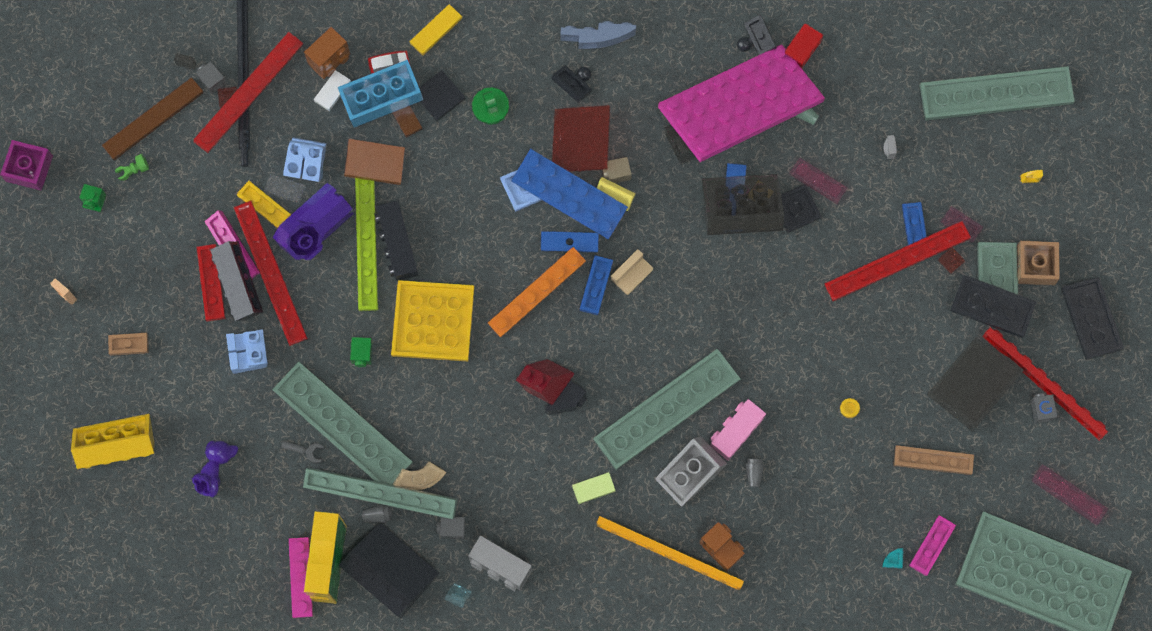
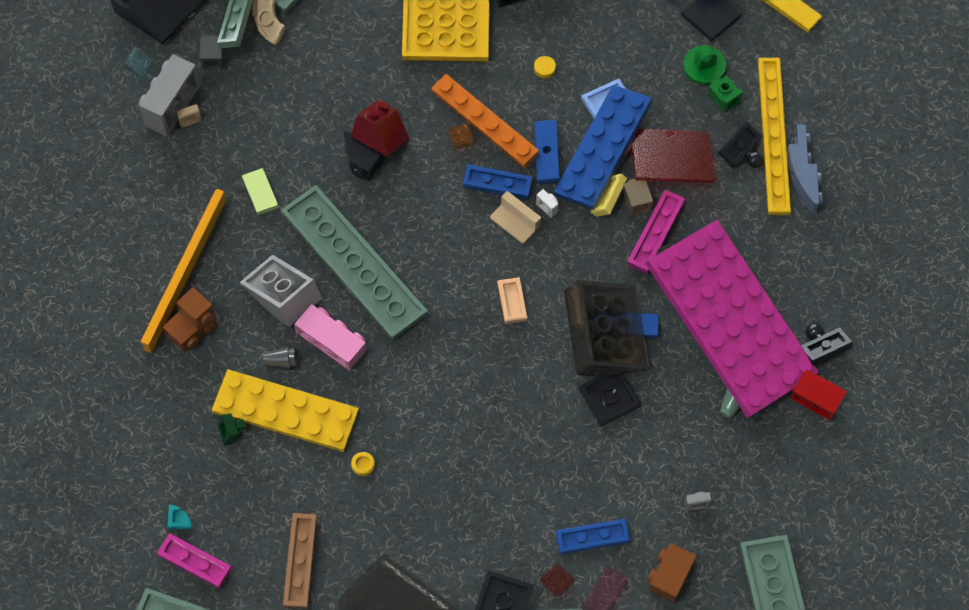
camera: 85 degrees right, 10 degrees down
(483, 239) = (544, 67): none -> yellow tile
(517, 548) = (188, 116): none -> tan tile
(521, 97) = (725, 98): none -> green brick
(548, 314) = (460, 136): none -> clear orange tile
(561, 56) = (774, 136): none -> yellow tile
(620, 244) = (547, 203): none -> white plate
(650, 159) = (656, 230): none -> dark pink plate
(707, 280) = (512, 300): none -> light nougat tile
(800, 470) = (286, 410): none -> yellow plate
(818, 181) = (646, 420): clear pink plate -> none
(818, 515) = (230, 429): none -> dark green tile
(897, 261) = (551, 515): red tile -> none
(949, 172) = (671, 573): none -> dark orange brick

